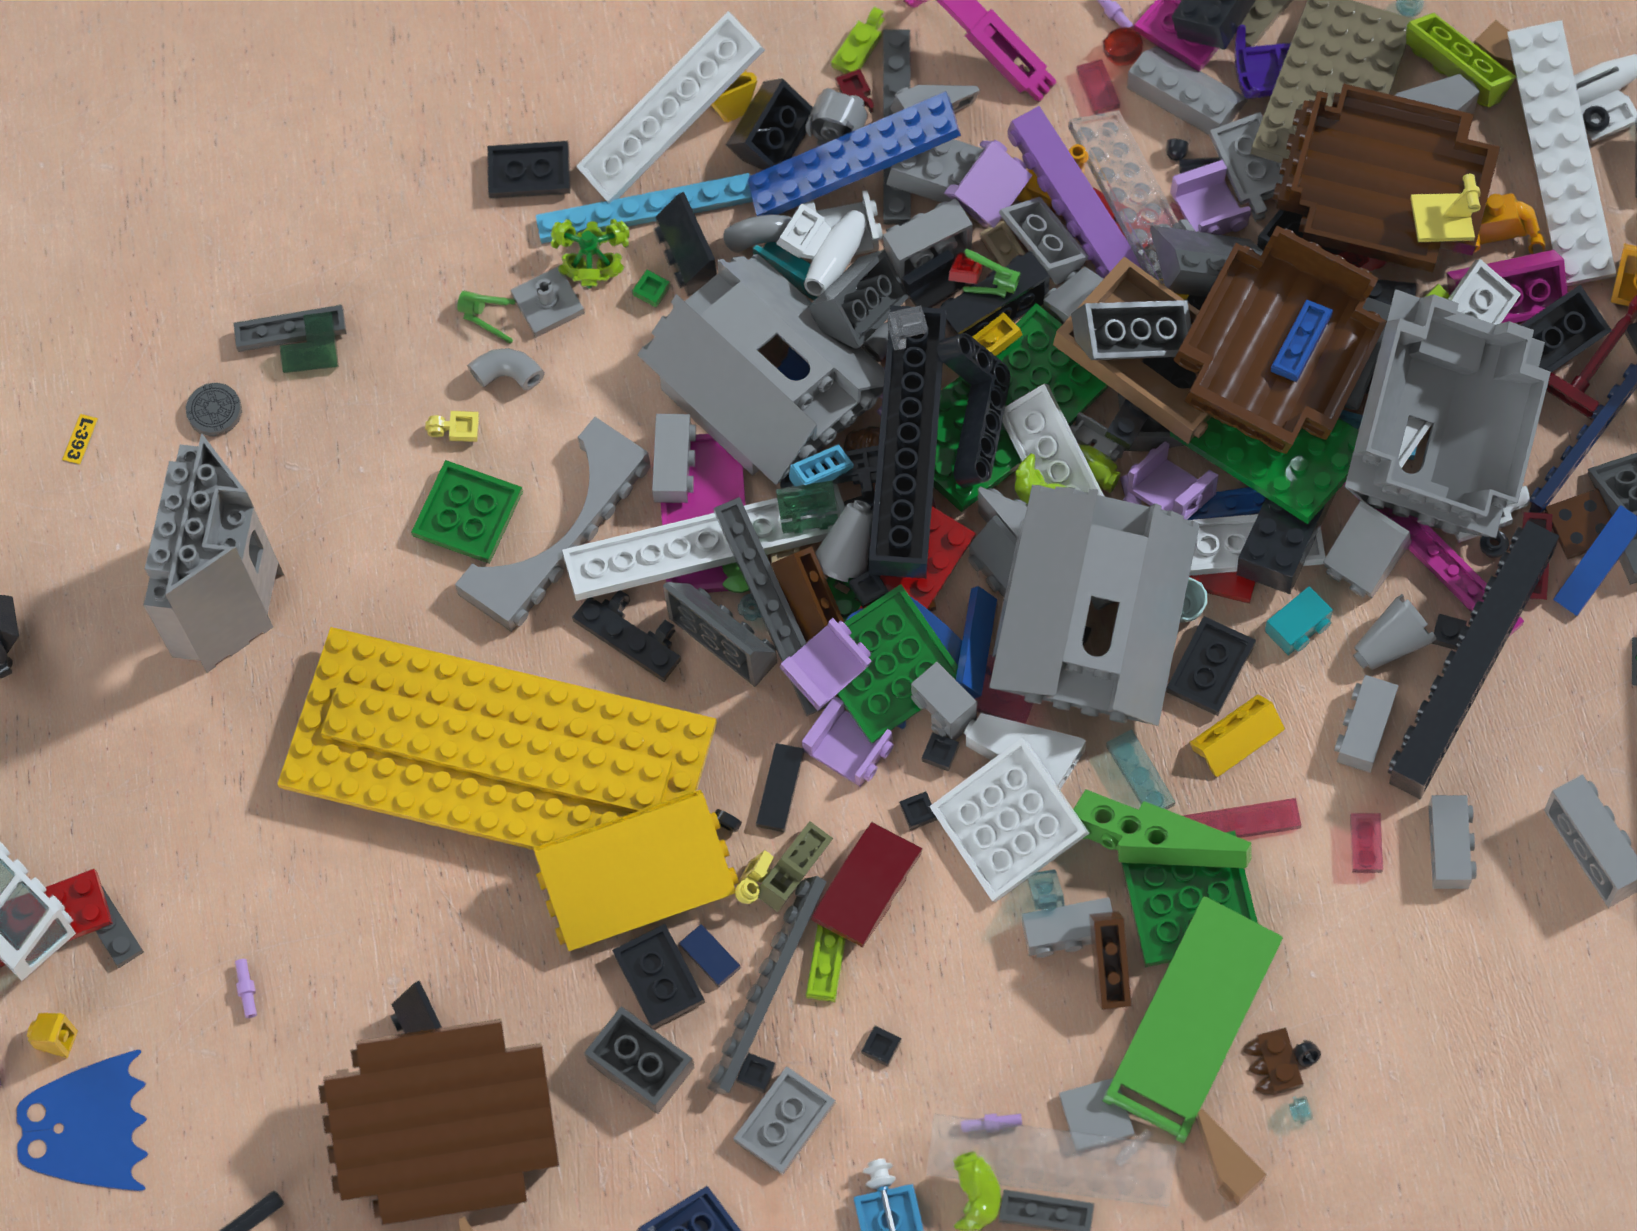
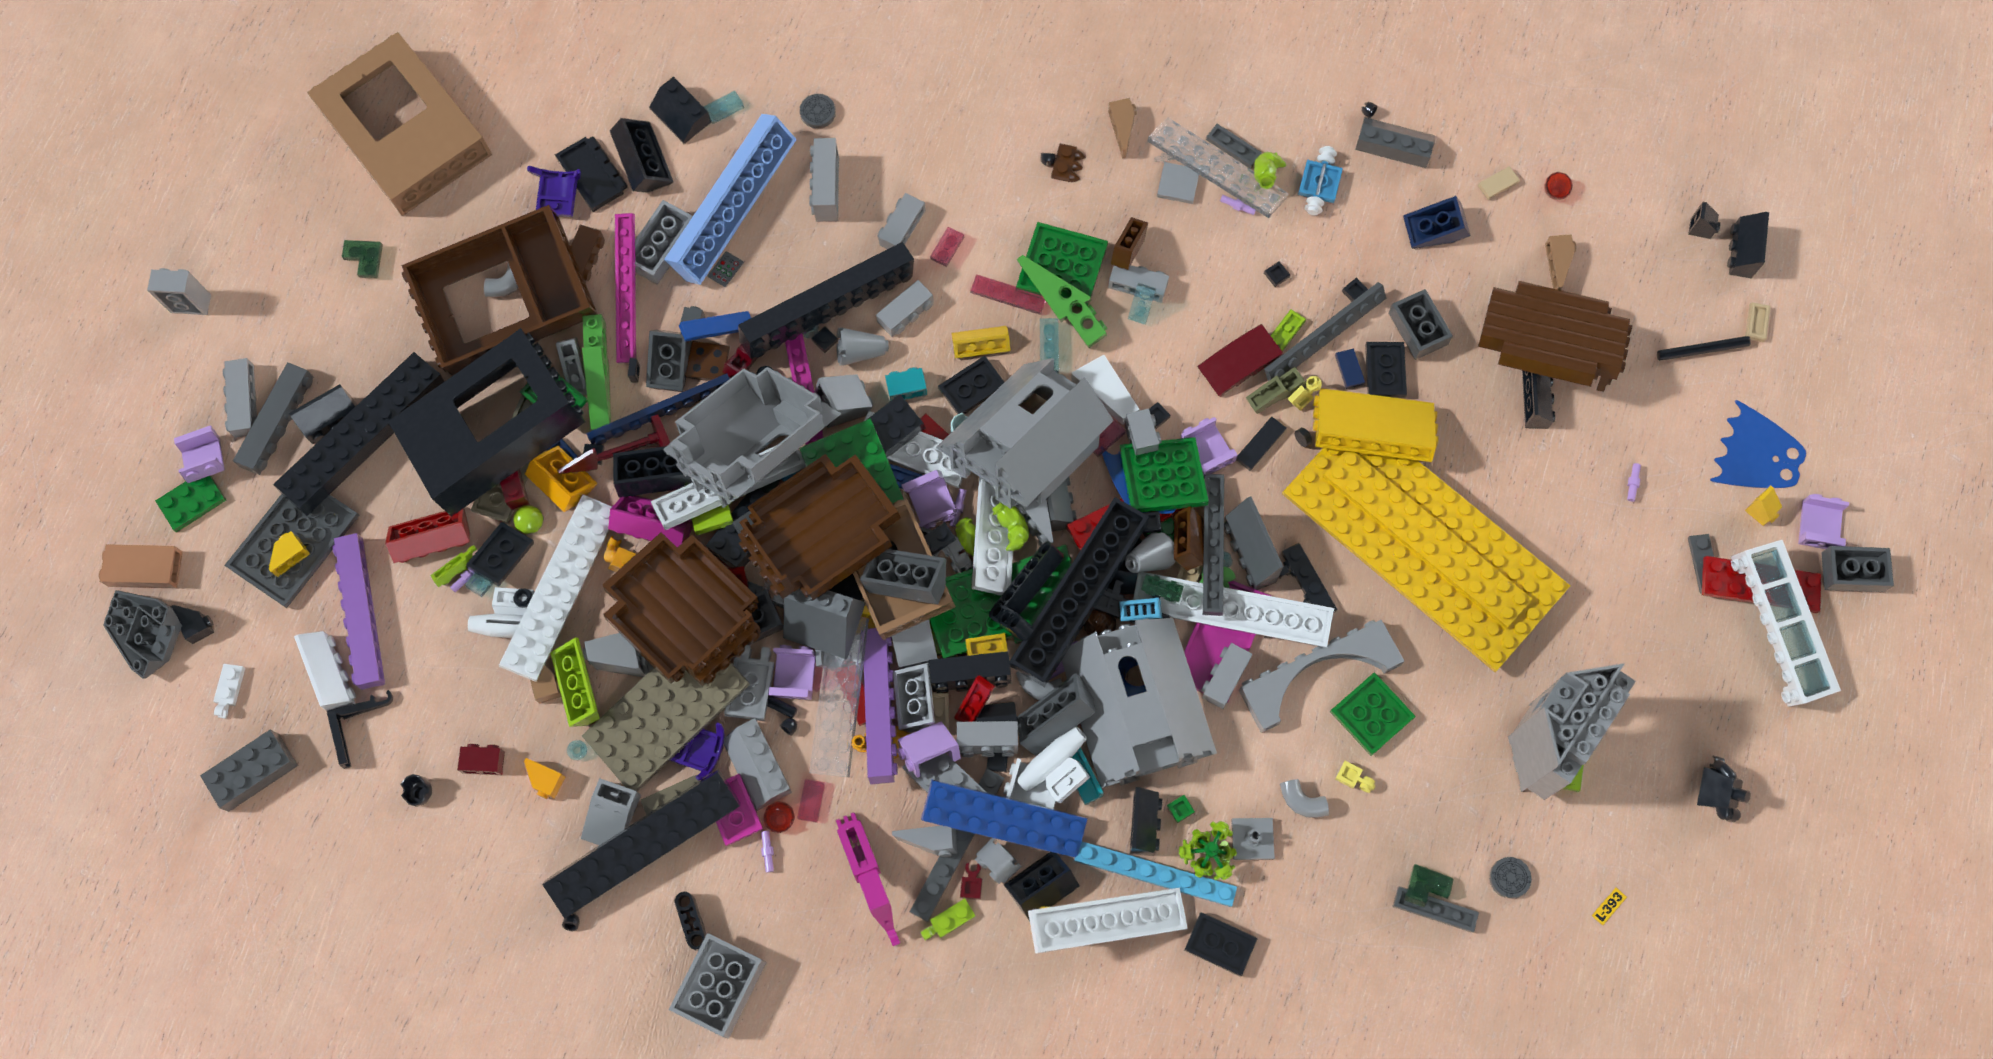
camera: 155 degrees left, 5 degrees up
(474, 303) = (1304, 860): bright green plant -> none
(755, 231) = (1091, 807): light grey cylinder -> none
(784, 1120) = (1352, 258): light grey plate -> none
(826, 663) = (1203, 484): lavender panel -> none
(905, 324) = (1043, 653): clear panel -> none
(917, 810) = (1187, 391): black tile -> none
(976, 641) = (1102, 464): blue tile -> none
(1005, 278) = (960, 666): bright green plant -> none
(1009, 820) = (1141, 350): white plate -> none
(1194, 1015) = (1097, 201): bright green flag -> none
(1301, 340) = (806, 519): blue tile -> none
(1301, 1110) = (1068, 131): clear light blue plate -> none
(1446, 215) = (666, 557): light yellow plate -> none

